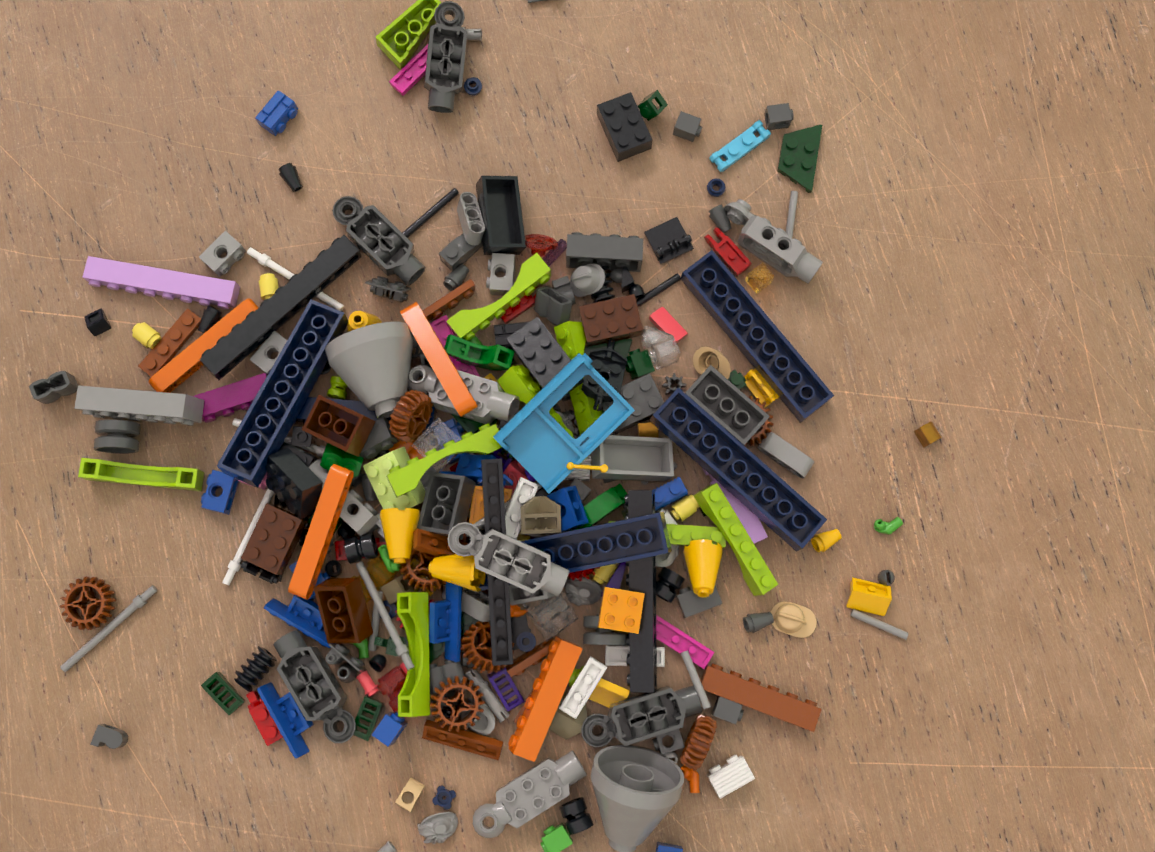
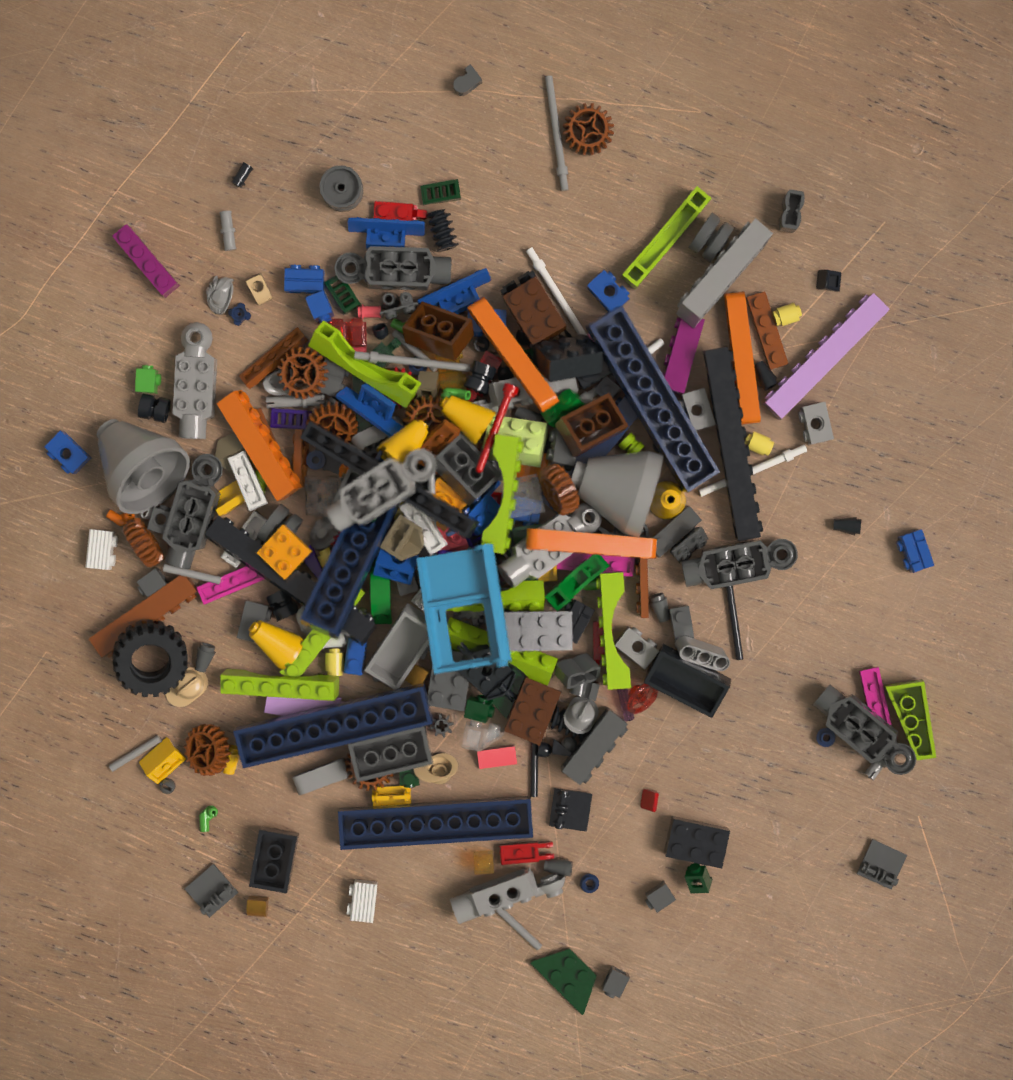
camera: 120 degrees right, 10 degrees up
(264, 791) = (346, 178): none -> dark grey wheel
(354, 512) = (509, 392): none -> red piece
(376, 760) = (304, 280): none -> blue brick
(384, 306) = (676, 530): none -> dark grey slope
(603, 468) = (406, 615): yellow hinge -> none
(617, 184) = (649, 800): none -> red slope
(740, 146) = (612, 930): medium azure plate -> none
(805, 645) = (156, 681): none -> black tyre
(833, 551) = (207, 749): none -> dark orange gear
(860, 352) = (363, 901): none -> white brick
(881, 445) = (274, 859): none -> black brick
(943, 481) = (211, 890): none -> dark grey hinge

